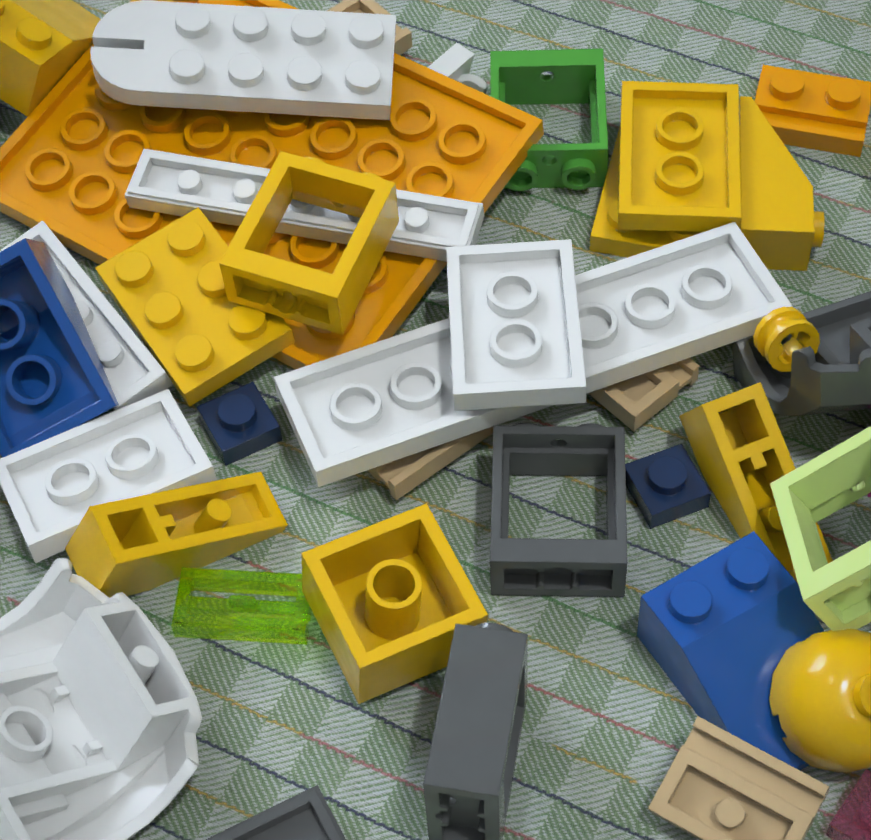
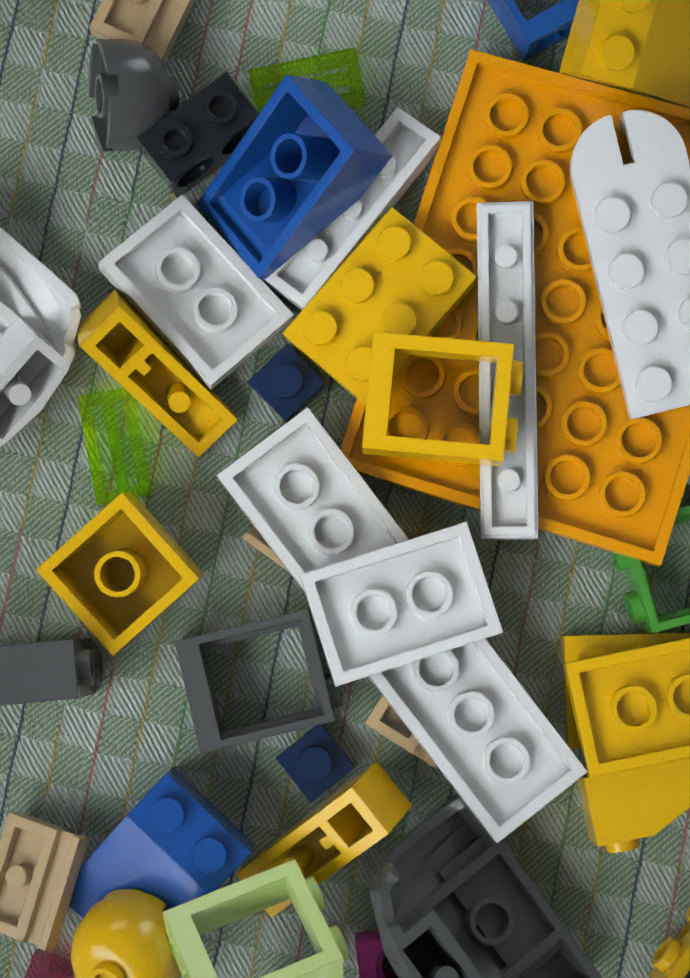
camera: 70 degrees right, 30 degrees up
(775, 328) = (458, 844): yellow bush -> none

